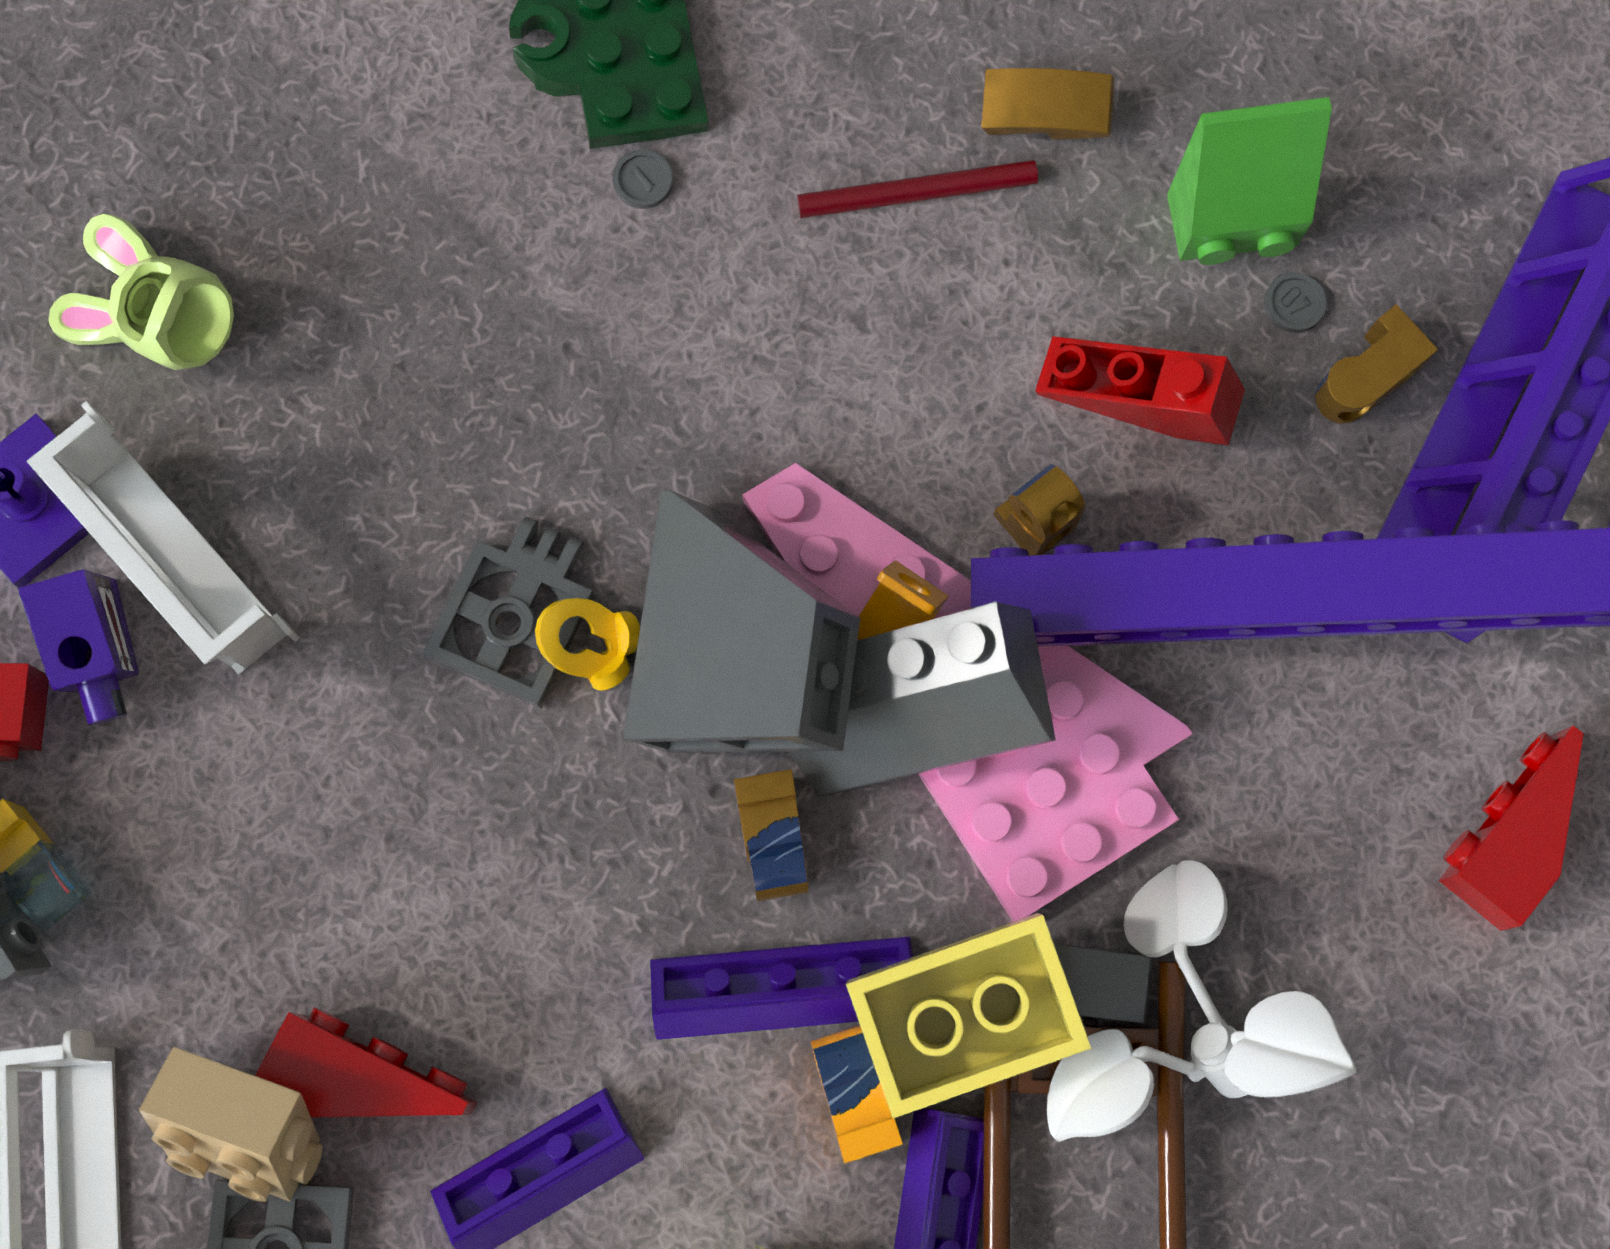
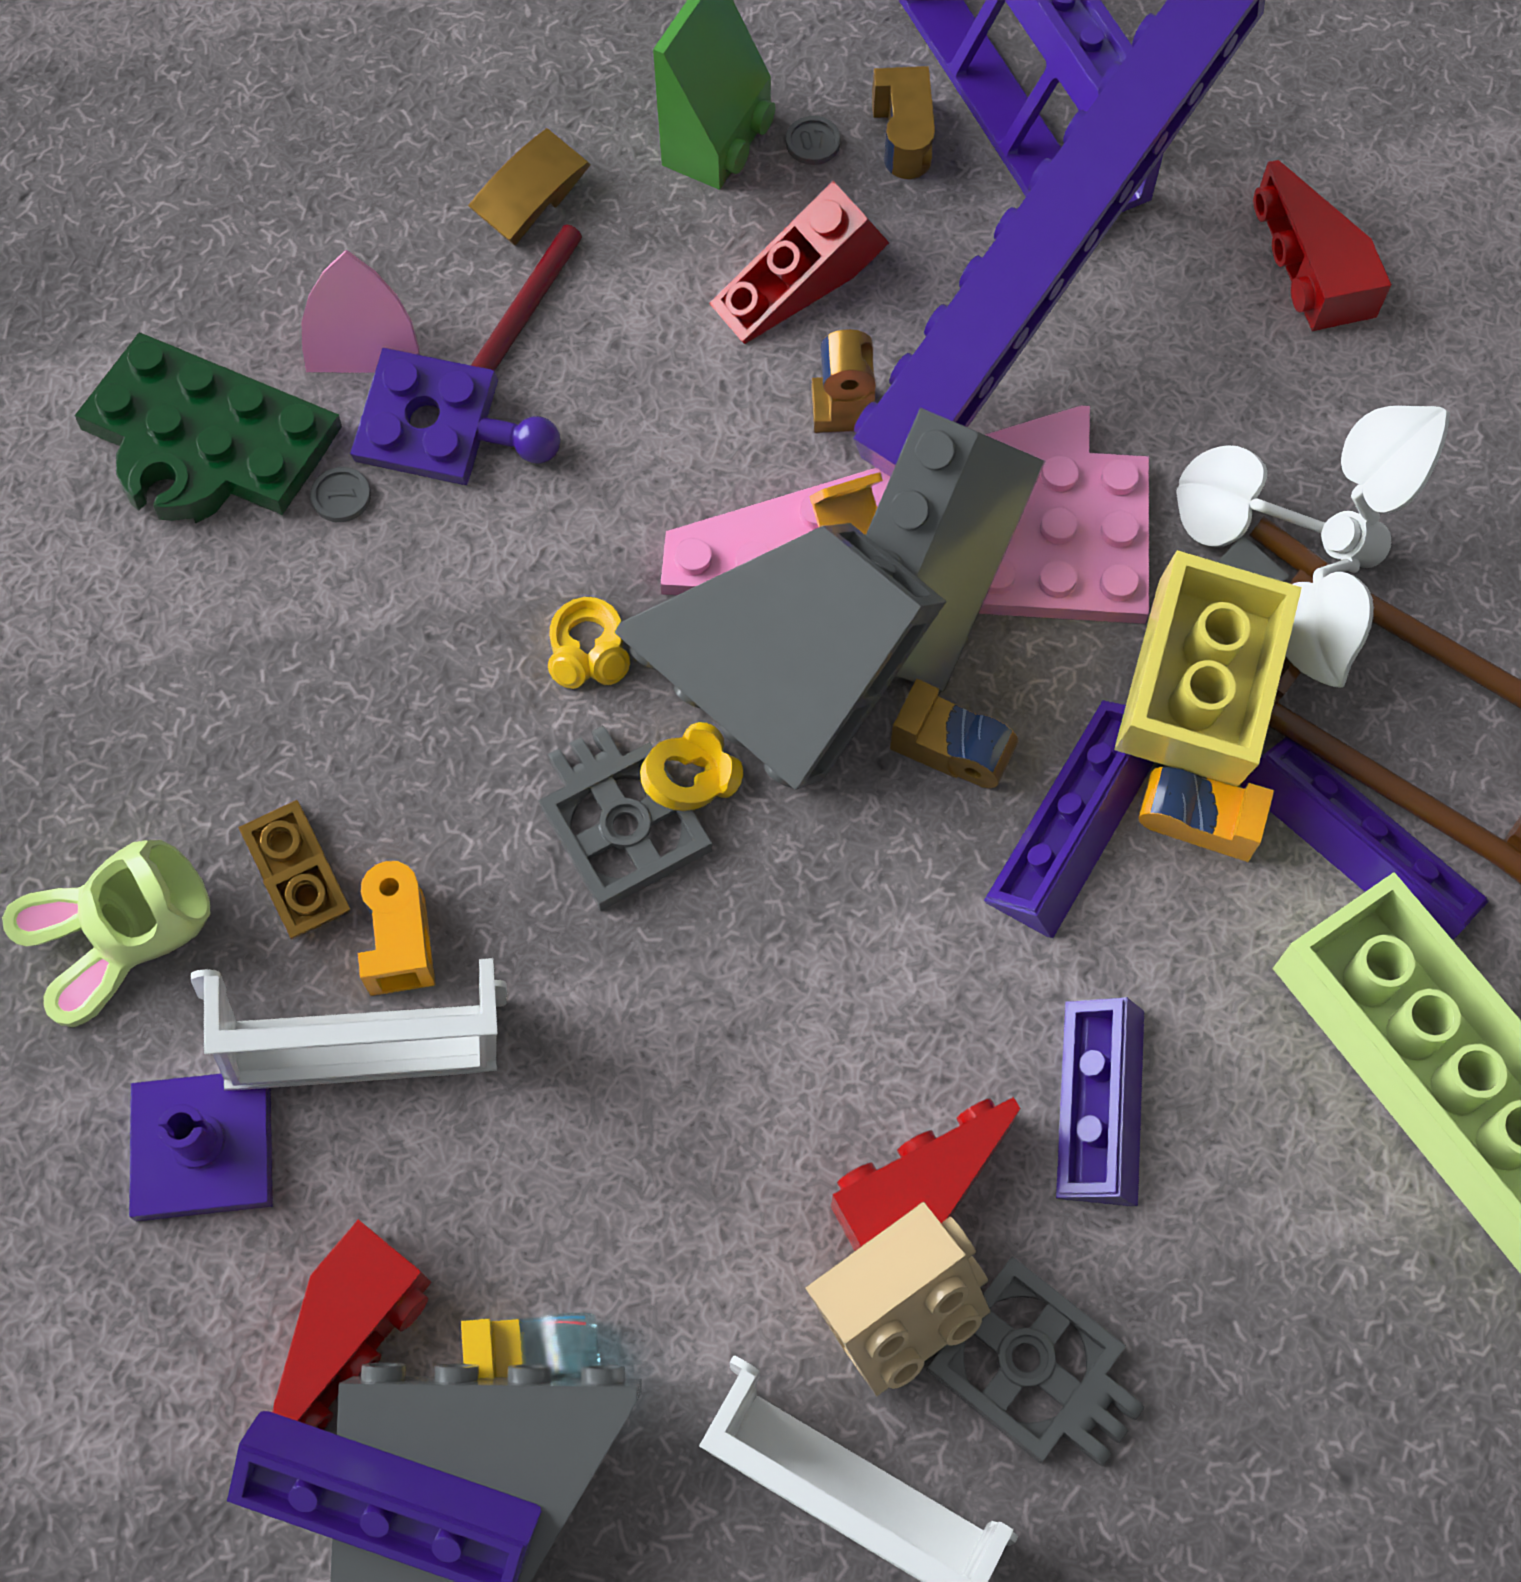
camera: 50 degrees left, 10 degrees down
(69, 618) = (348, 1145): dark purple torso -> none
(292, 400) = (294, 869): none -> pearl gold slope
(292, 515) = (400, 931): none -> light orange leg
(641, 502) = (604, 663): none -> yellow piece
(752, 230) = (451, 444): none -> dark purple plate
(793, 70) = (352, 319): none -> bright pink shield

